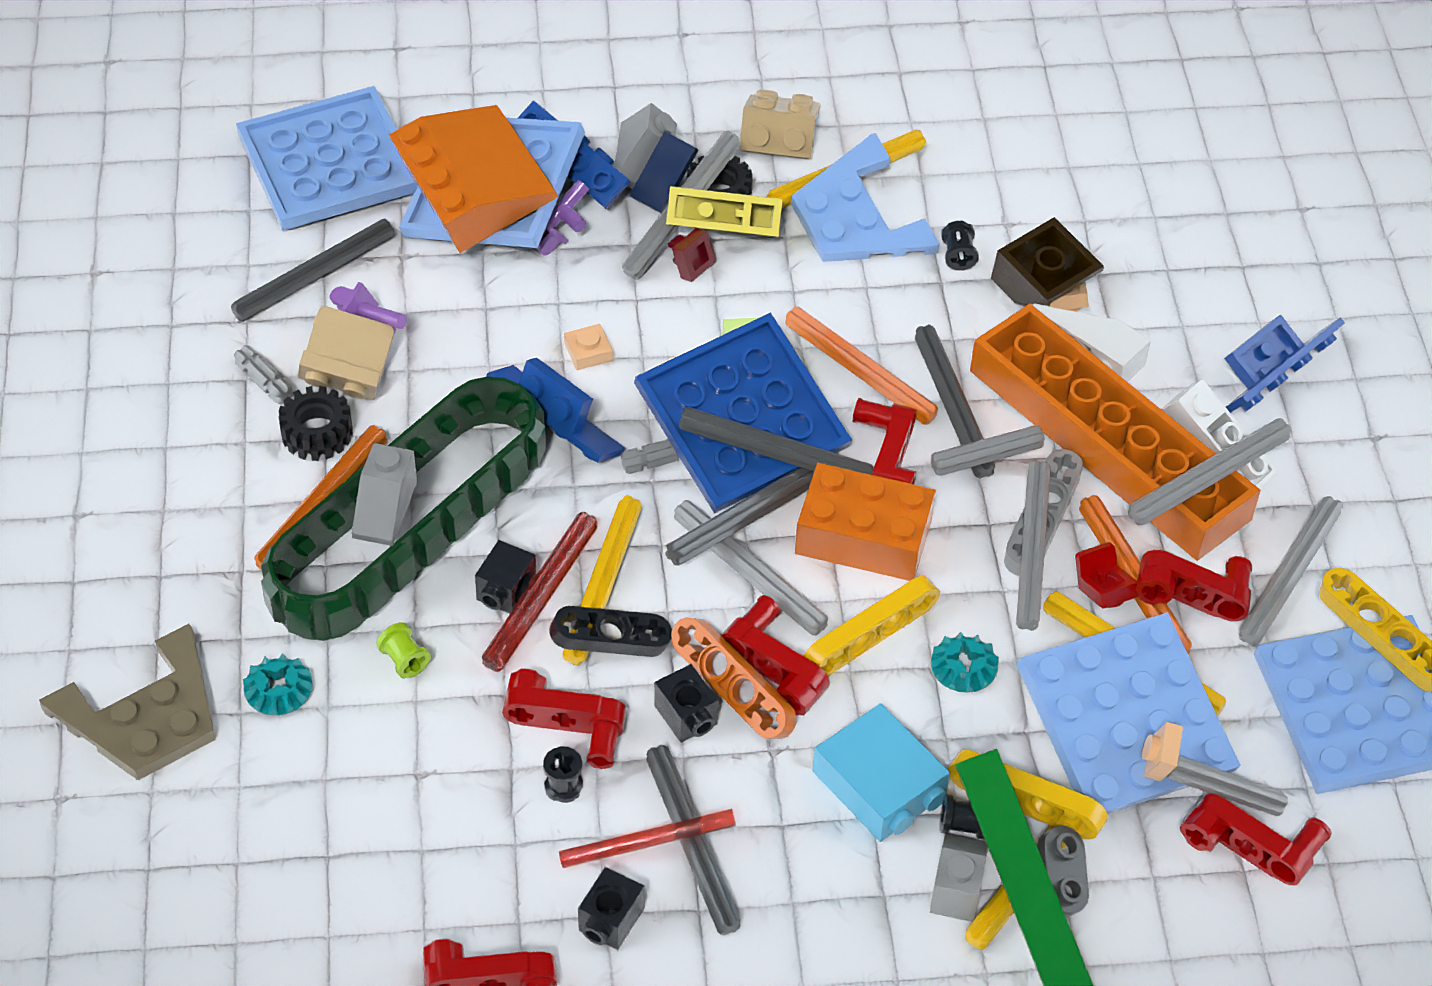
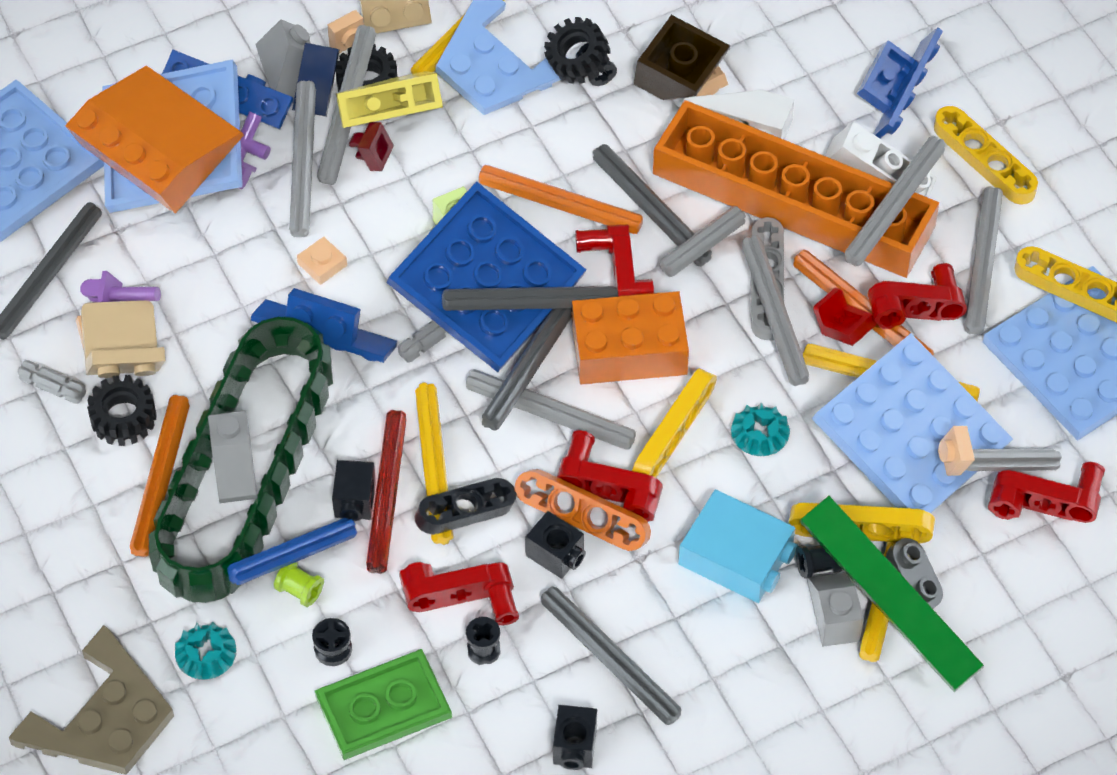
camera: 20 degrees left, 5 degrees up
(400, 712) = (328, 633): none -> black wheel
(407, 614) = (291, 551): none -> blue axle
(430, 803) = (383, 704): none -> bright green tile
(613, 243) = (302, 159): none -> light grey axle
(647, 838) = (577, 668): clear red bar -> none
(712, 131) = (343, 30): none -> light nougat plate
(947, 237) = (586, 63): none -> black tyre
(1347, 462) = (990, 151): none -> yellow beam

